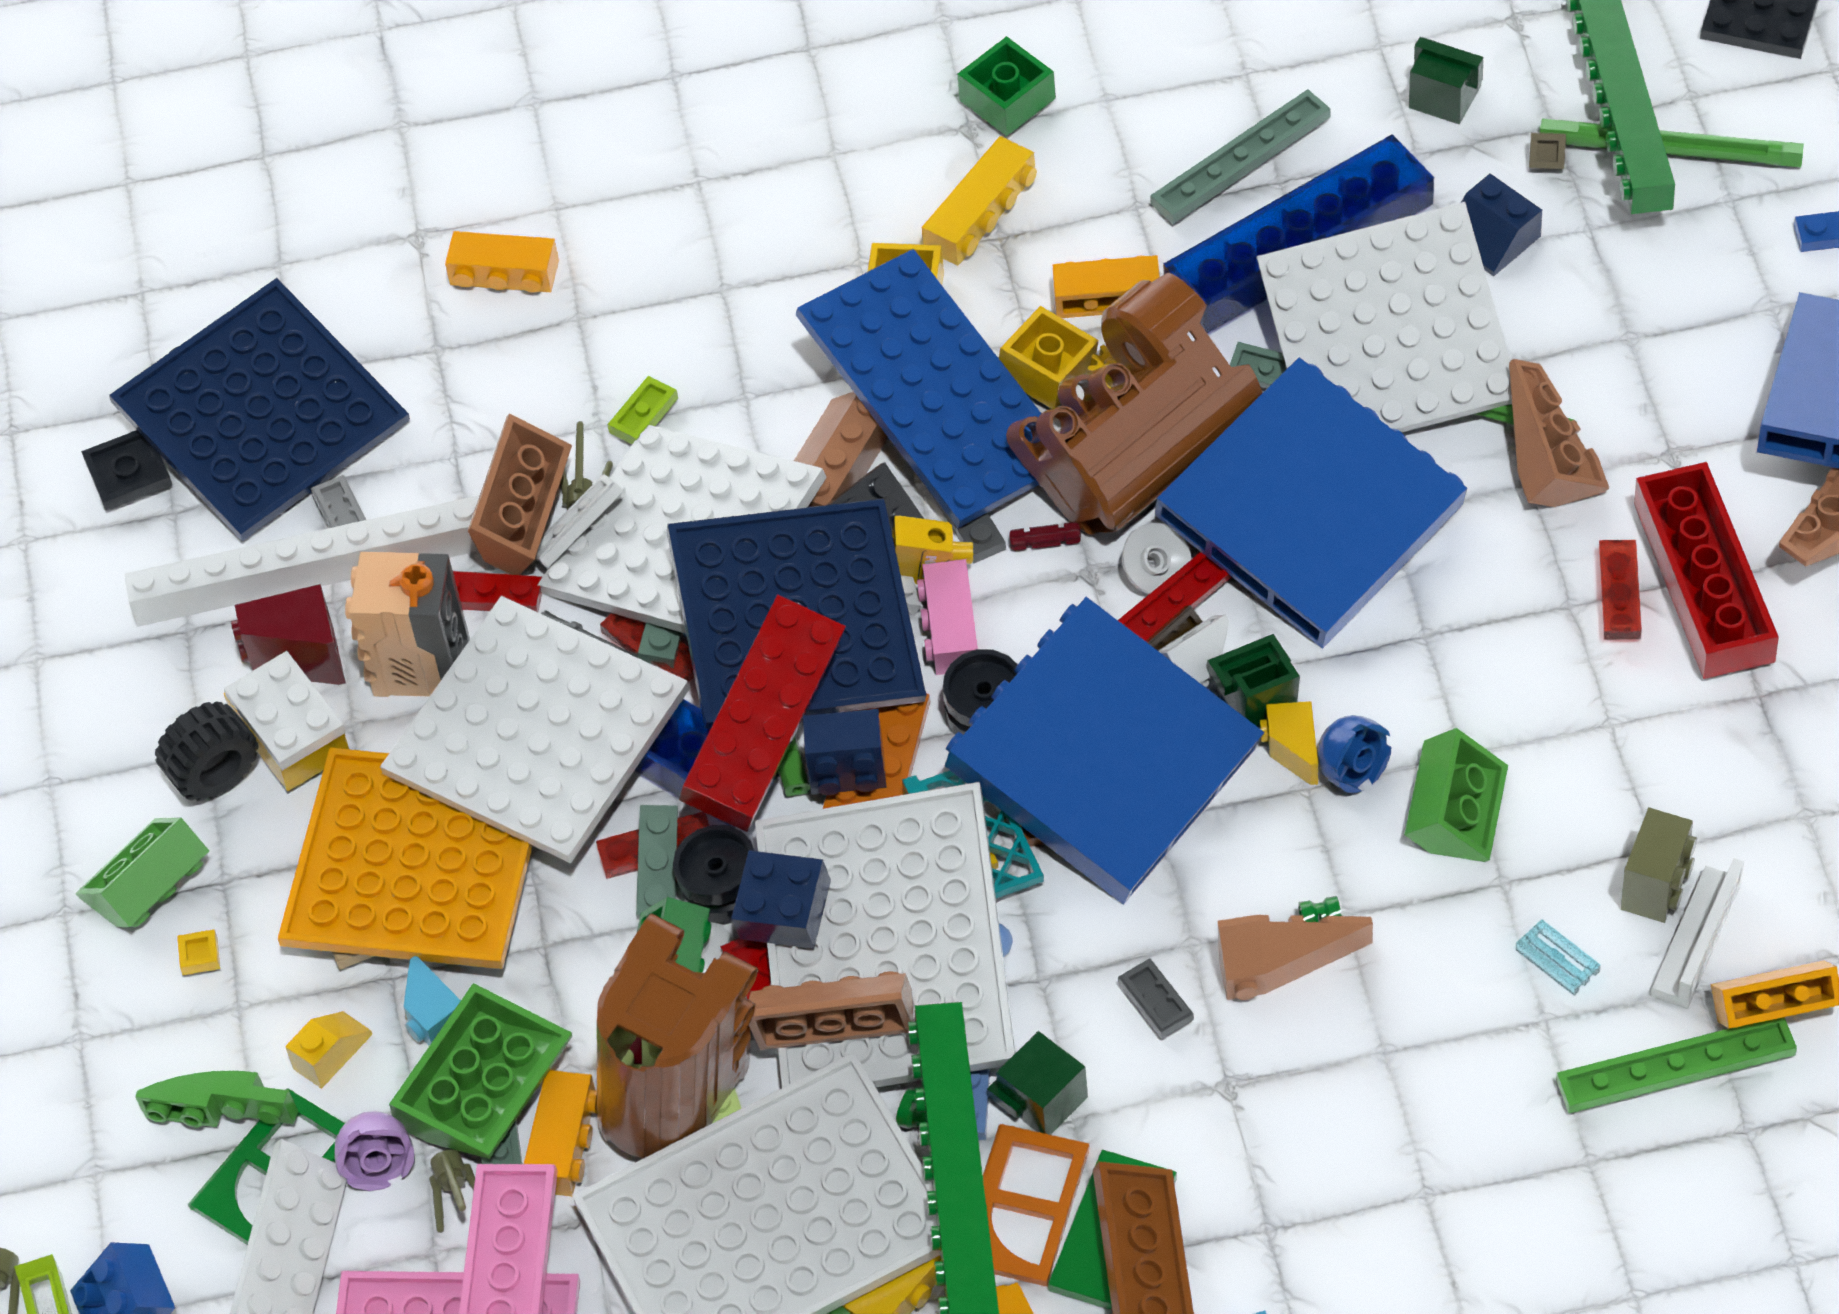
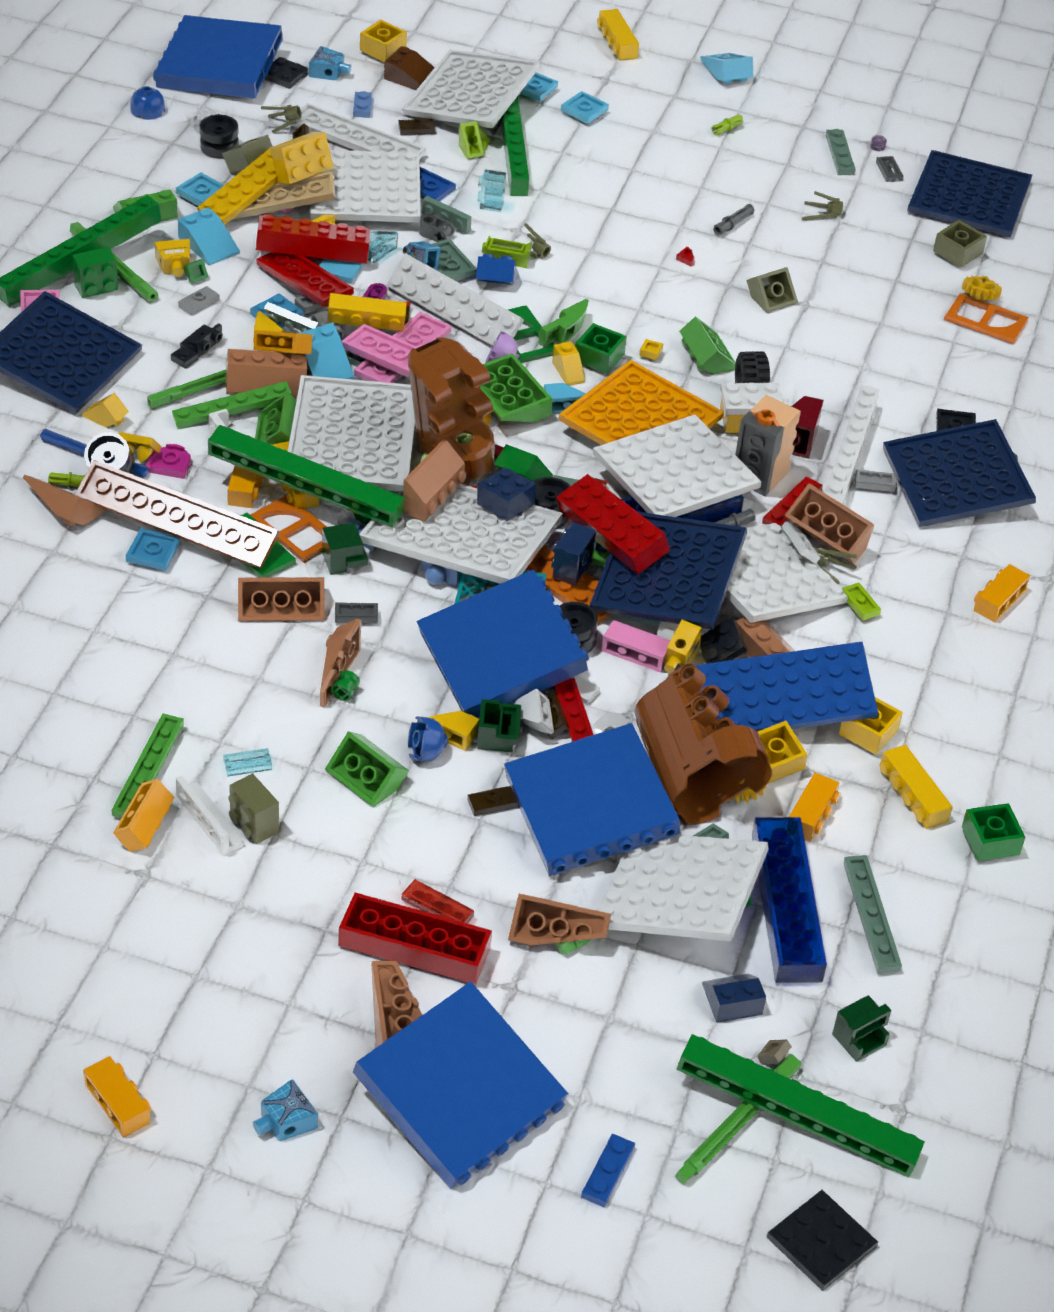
camera: 110 degrees right, 10 degrees down
(260, 1009) = (601, 348): none -> green brick
(1205, 1111) = (280, 598): none -> nougat slope
(1383, 634) = (492, 800): none -> dark brown plate

